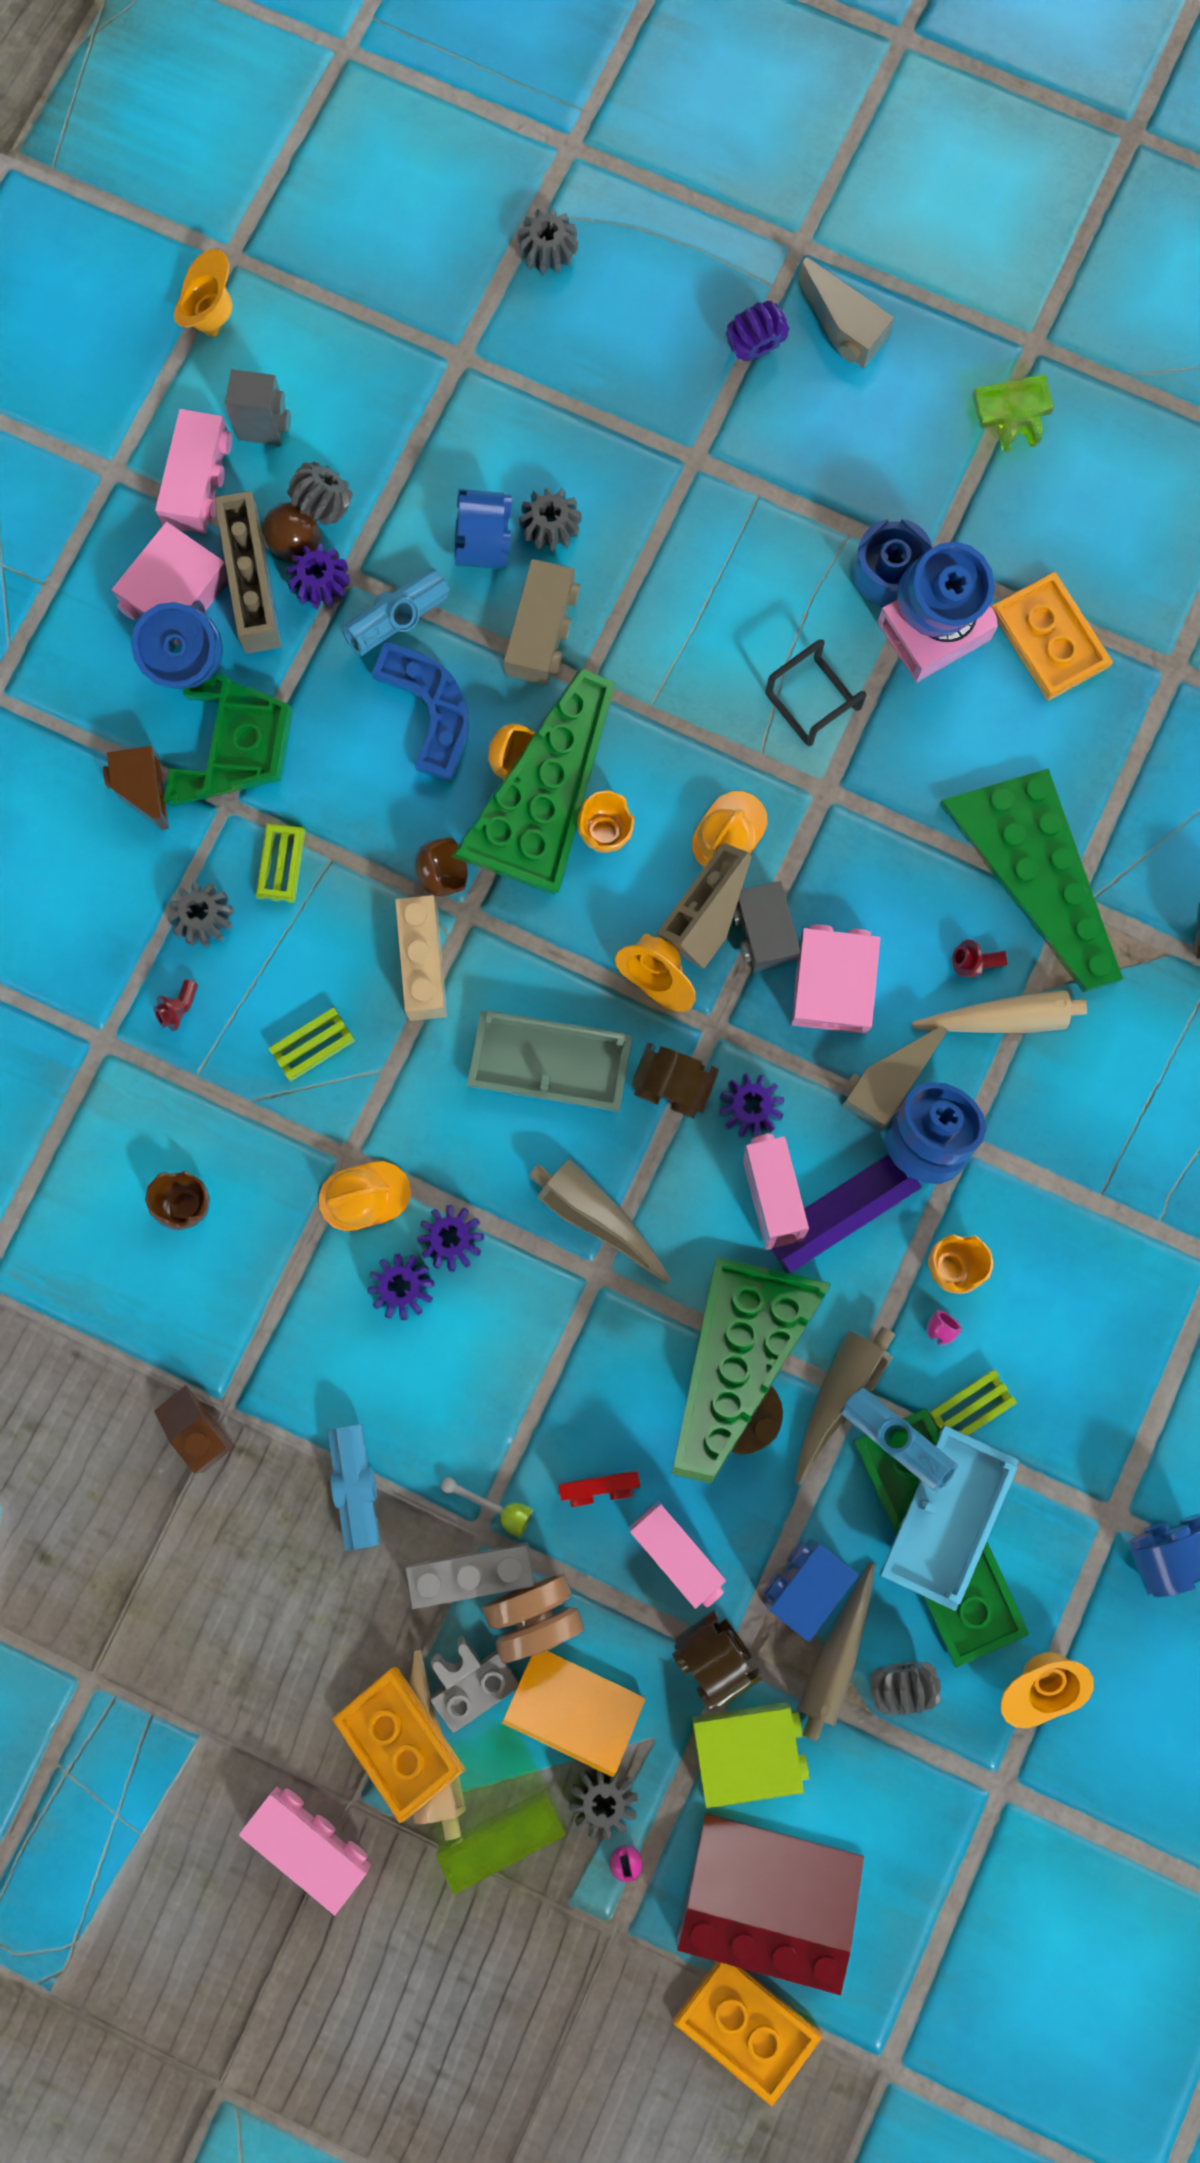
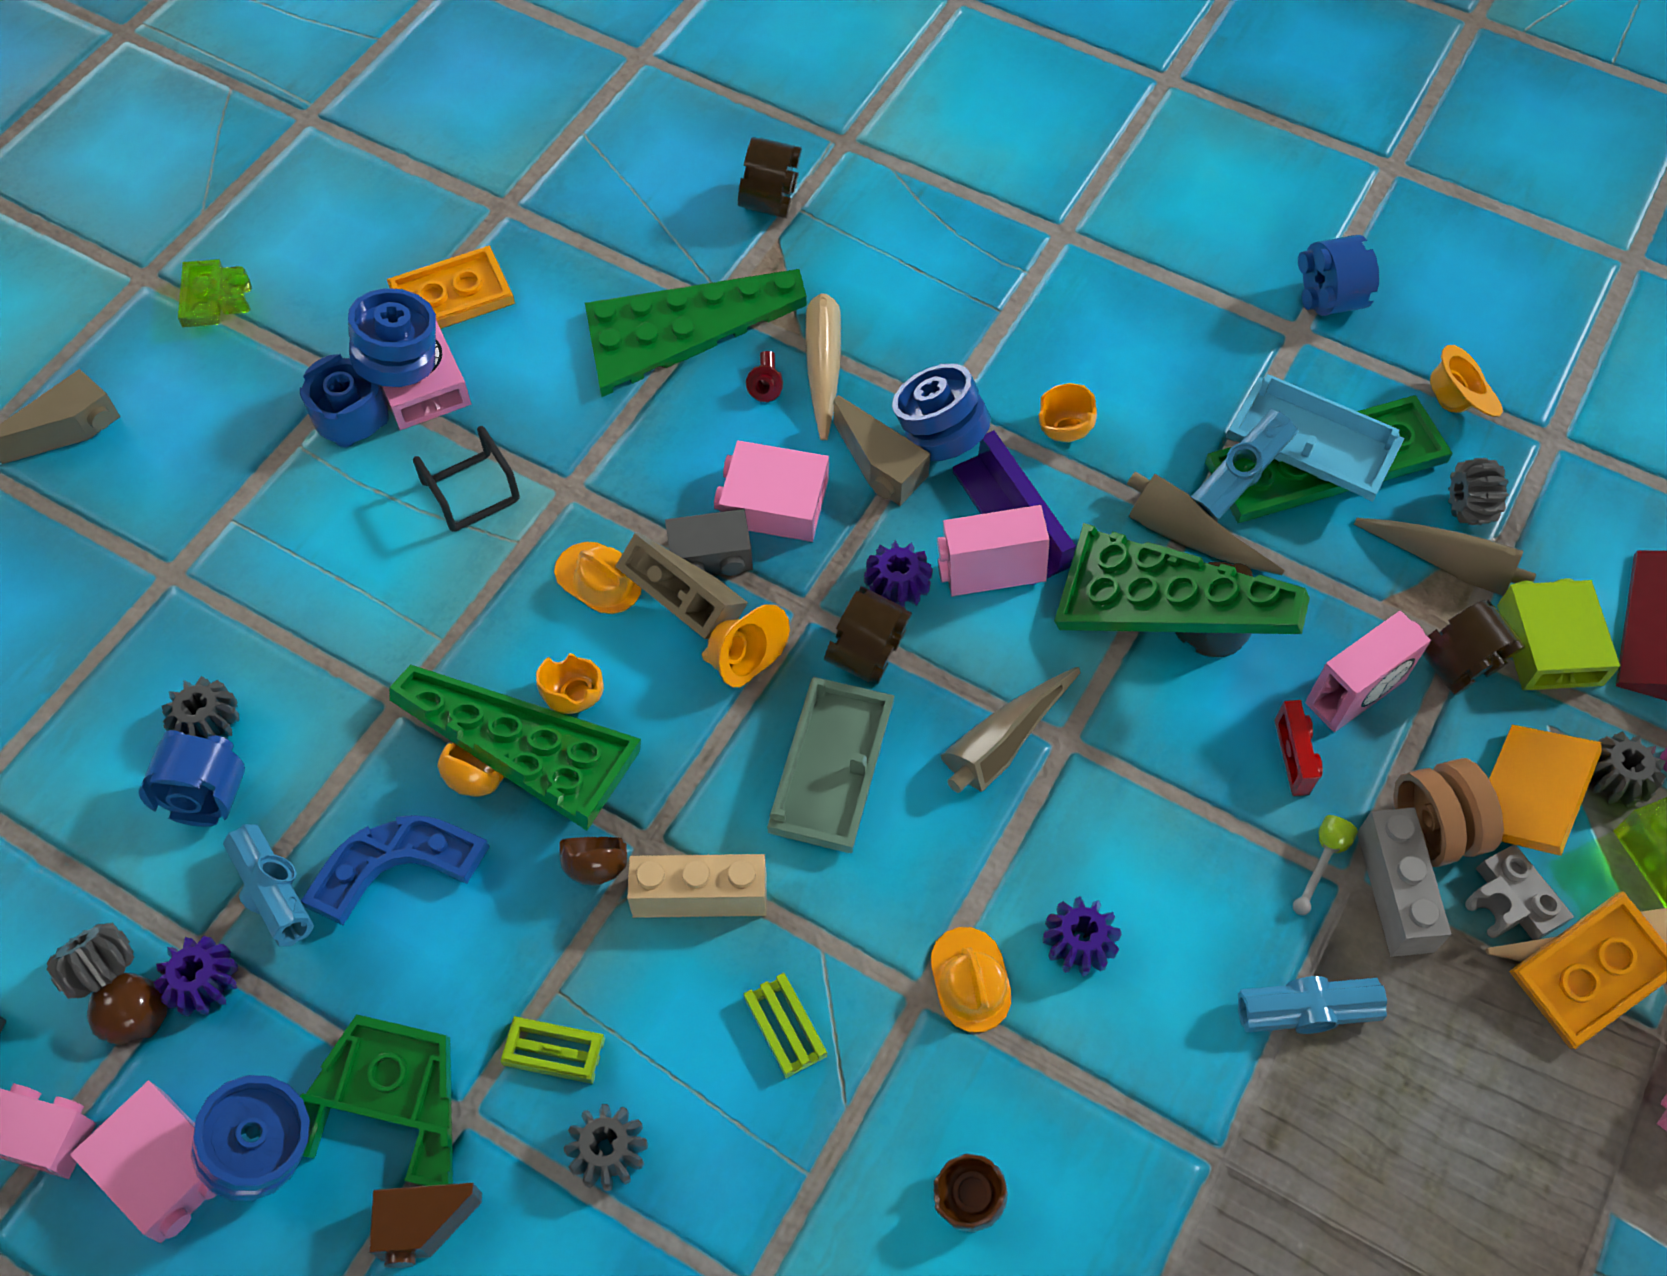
camera: 85 degrees left, 20 degrees down
(170, 1011) = (727, 1194): dark red plate -> none
(192, 1431) = (1254, 1192): reddish brown slope -> none
(248, 572) = (167, 1054): dark tan brick -> none
(438, 1243) = (1016, 866): dark purple gear -> none
(541, 622) = (321, 732): dark tan brick -> none
(757, 330) = (48, 491): dark purple gear -> none
(808, 1588) = (1393, 557): blue brick -> none
(944, 1327) = (1128, 438): dark pink hinge -> none
(999, 1389) = (1208, 421): lime tile -> none

